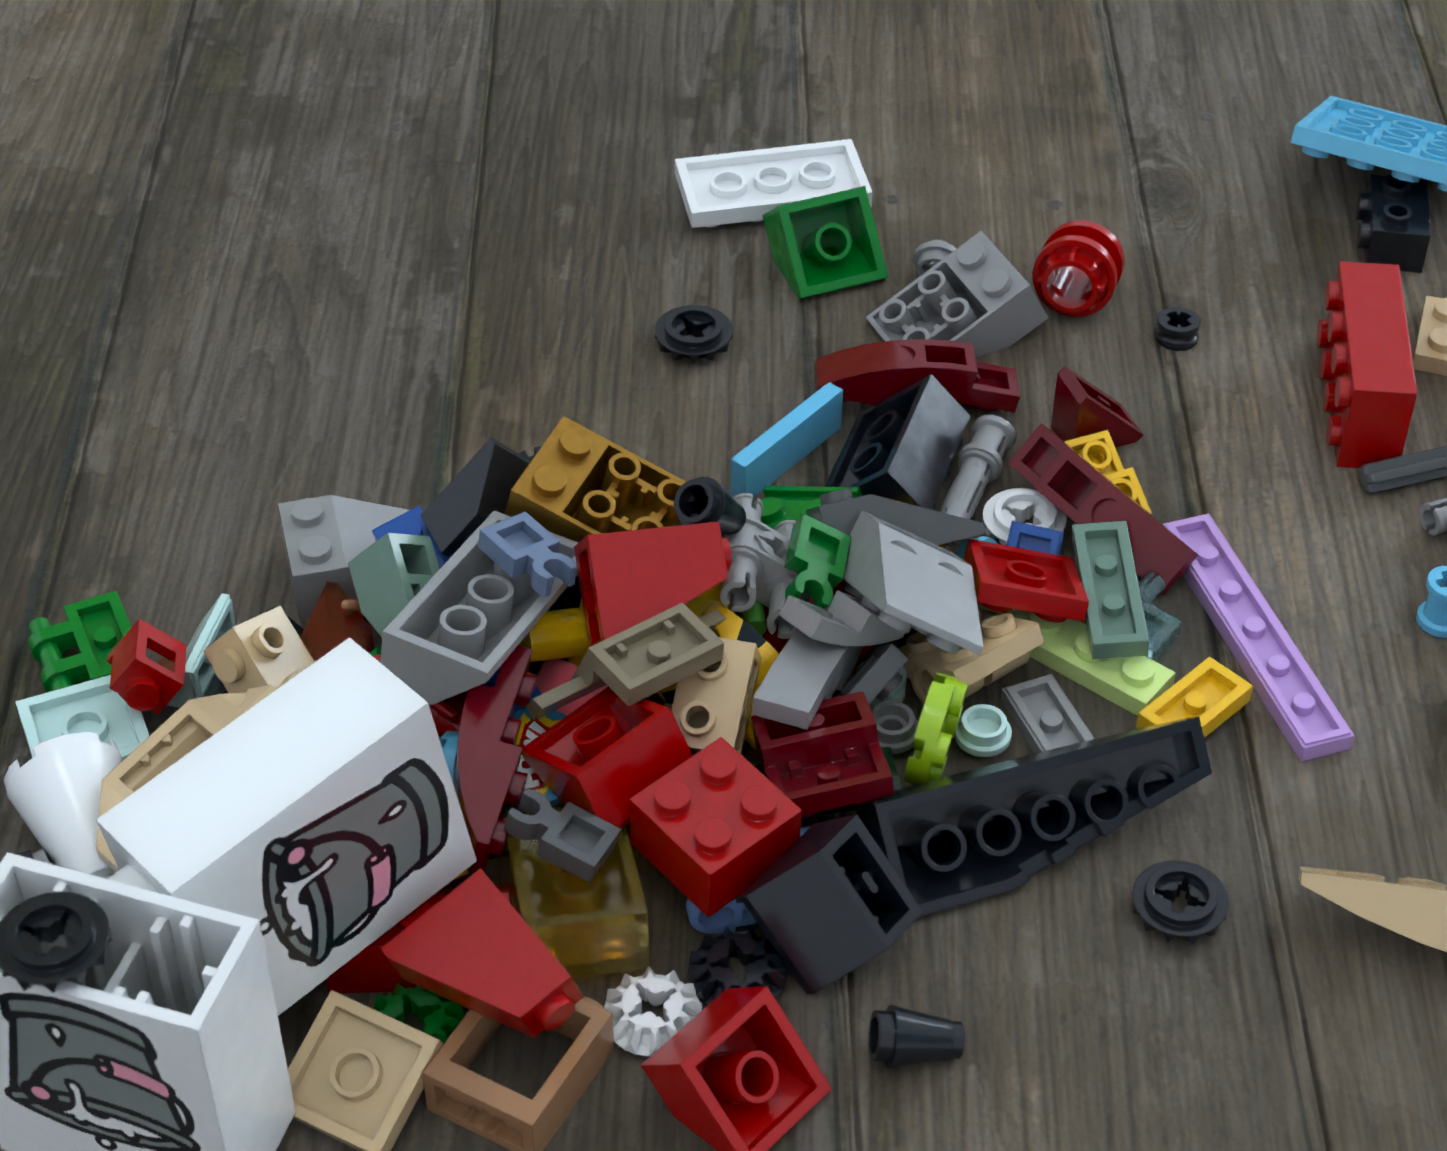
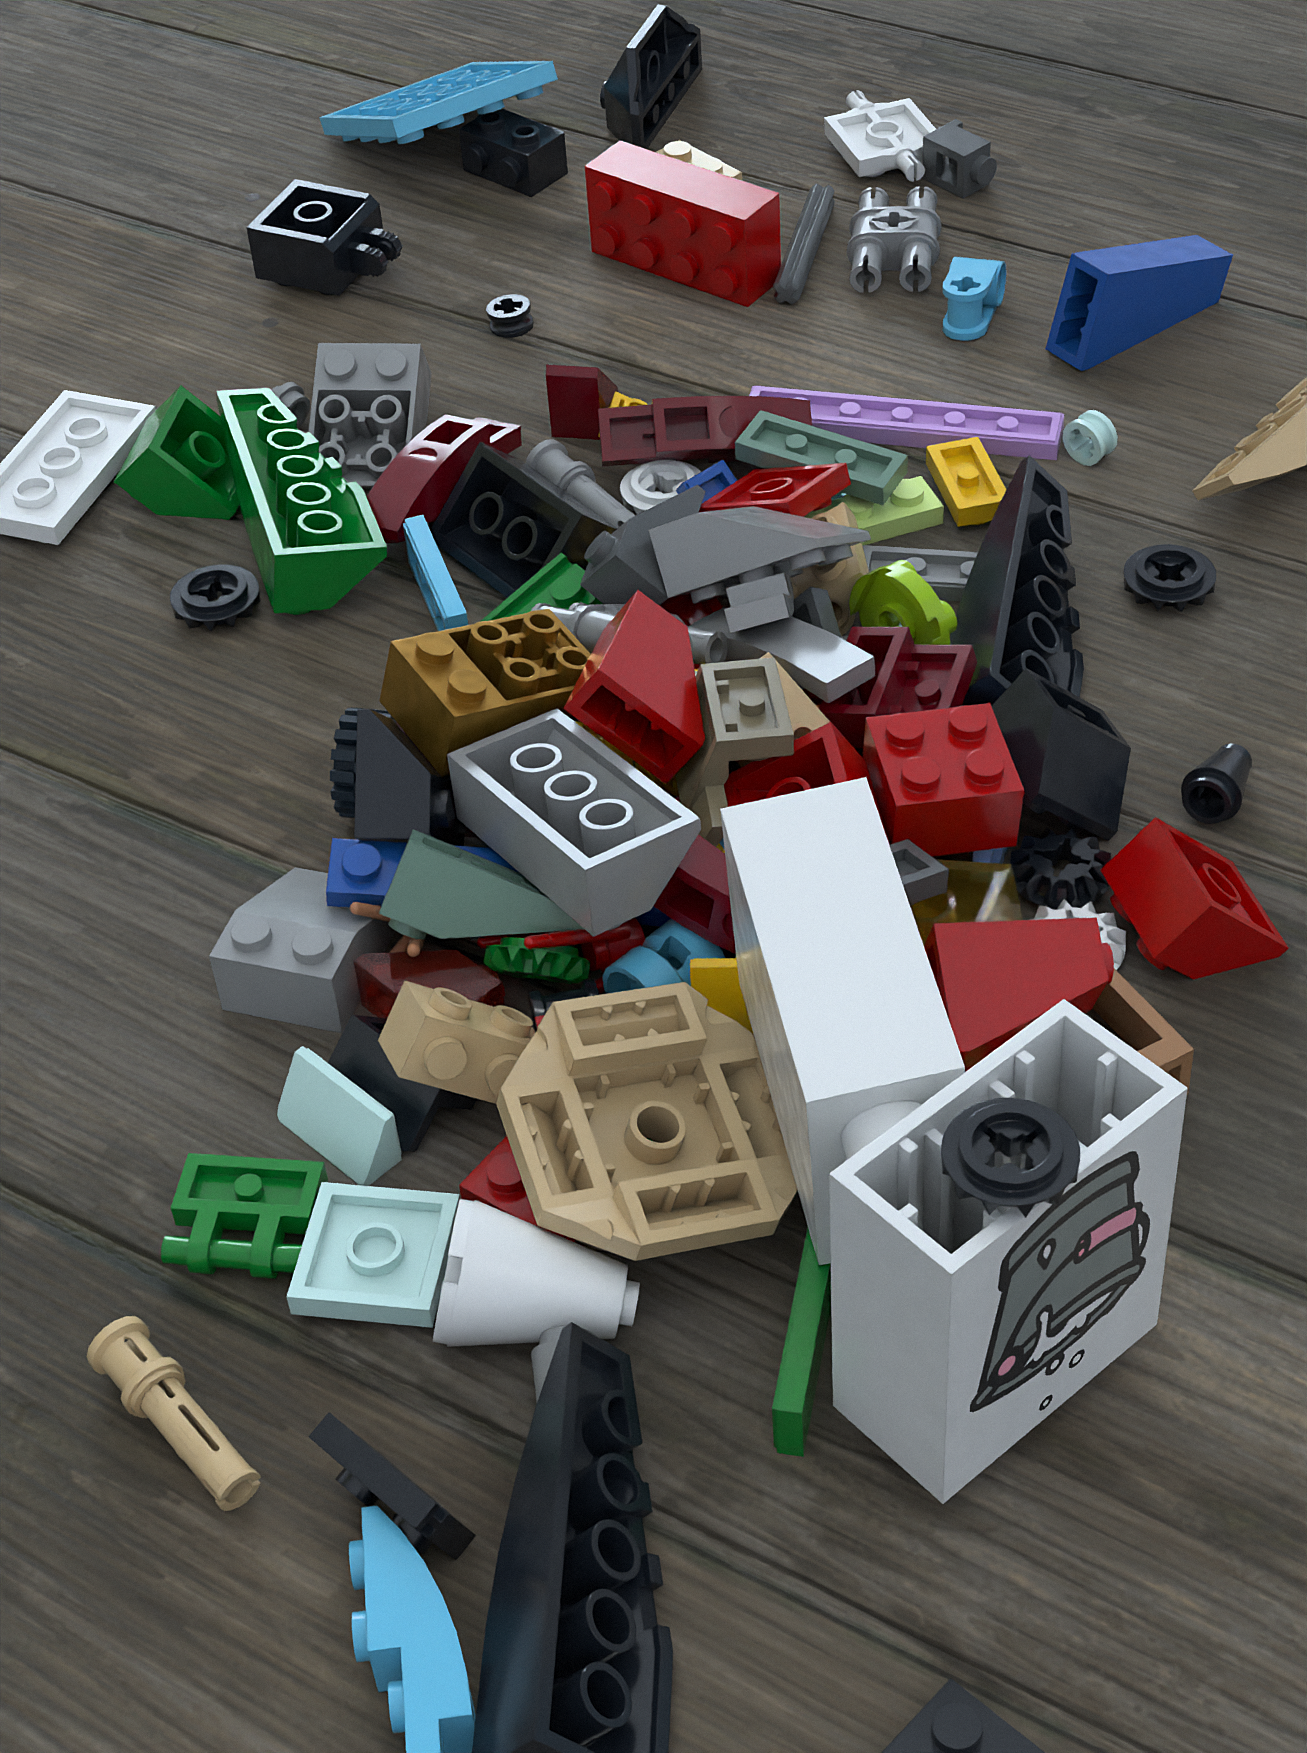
camera: 55 degrees left, 0 degrees up
(140, 680) = (360, 1147): red brick -> none
(525, 546) = (552, 735): sand blue plate -> none
(706, 502) = (587, 590): black cone -> none
(805, 312) = (300, 514): none -> green wedge
(818, 557) = (676, 589): green plate -> none
(1078, 268) = (398, 313): red piece -> none
(1153, 171) = (320, 238): none -> black hinge
(1328, 766) = (1099, 429): none -> light aqua bush

